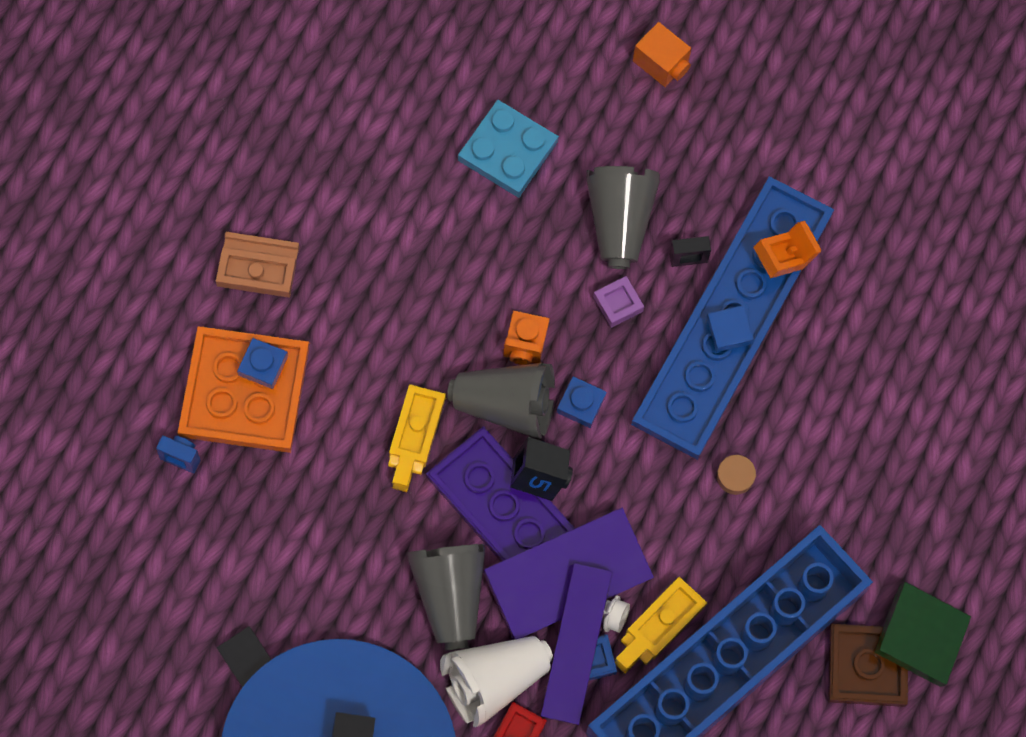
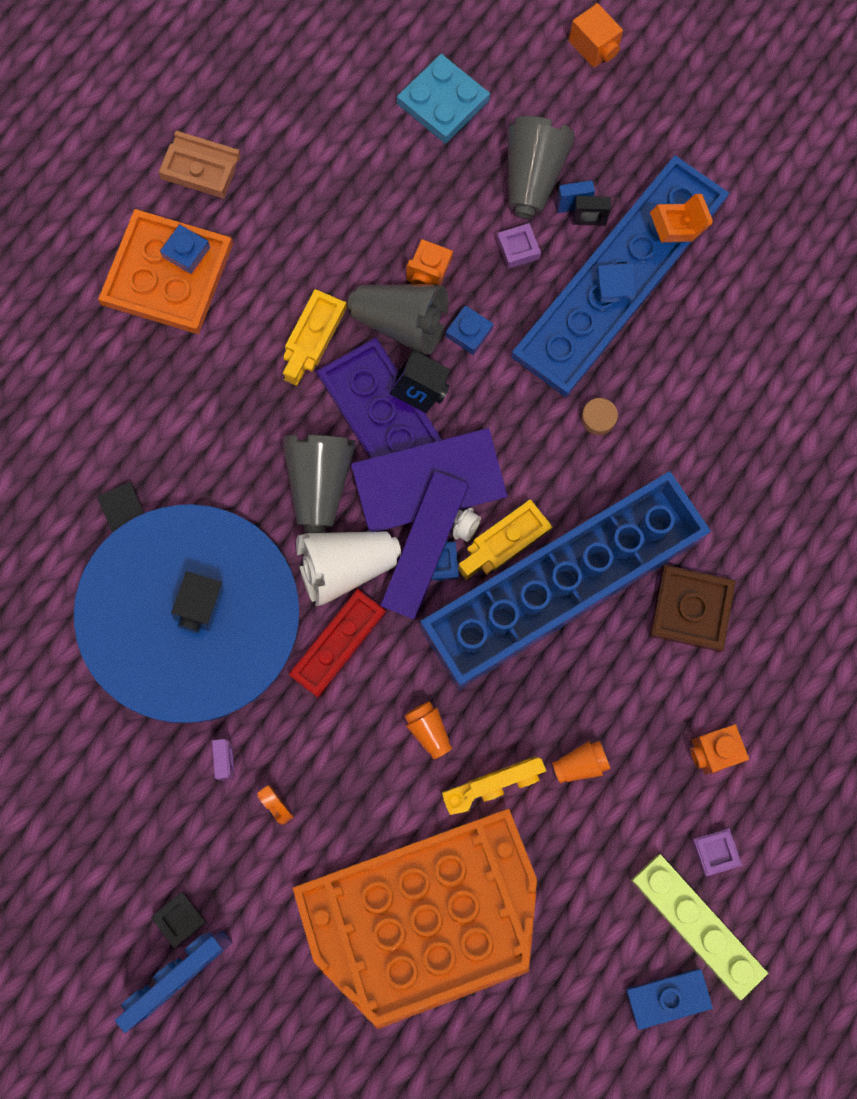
camera: 10 degrees right, 5 degrees up
(179, 453) = (96, 317): blue plate -> none
(662, 238) = (568, 192): none -> blue tile
(922, 634) = (748, 588): dark green tile -> none

